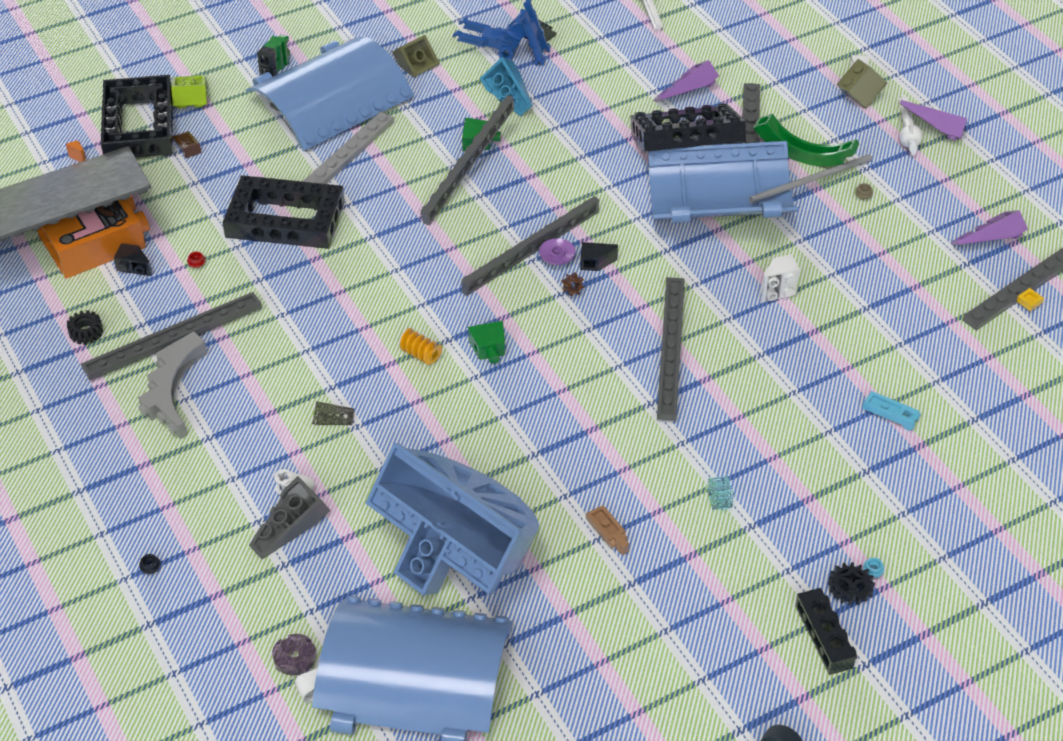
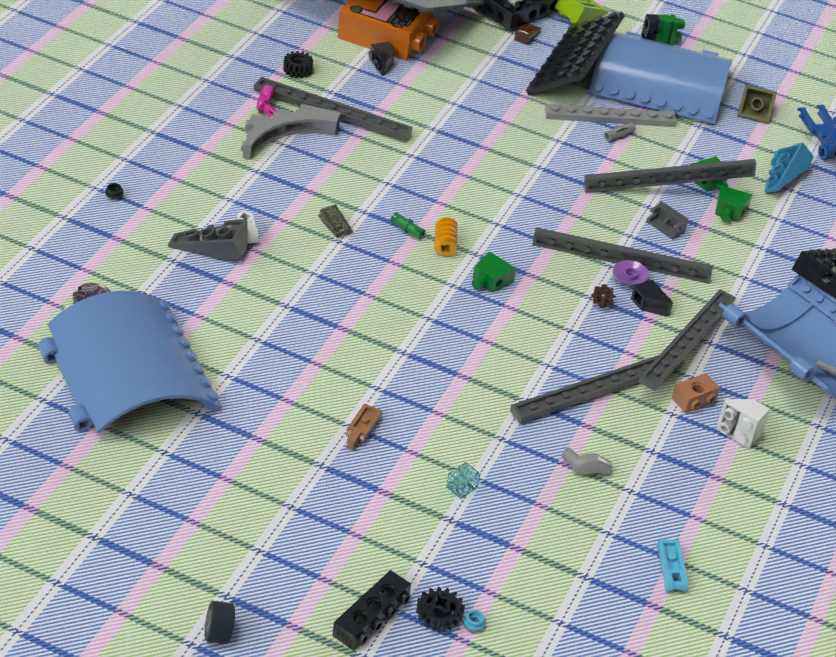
camera: 50 degrees right, 5 degrees down
(120, 381) = (264, 101): none -> dark pink arm
(196, 259) = (417, 87): red plate -> none
(260, 125) = (575, 53): none -> black plate
(316, 232) = (541, 120): black brick -> none
(374, 159) = (619, 131): none -> light grey pin
(380, 366) = (407, 225): none -> green pin
(452, 520) = (277, 316): medium blue piece -> none
(511, 193) = (667, 220): none -> dark grey hinge
(523, 143) = (732, 204): none -> green torso
(665, 261) = (685, 341): none -> dark grey plate
(722, 291) = (695, 393): none -> nougat brick
(755, 403) = (587, 463): none -> light grey arm

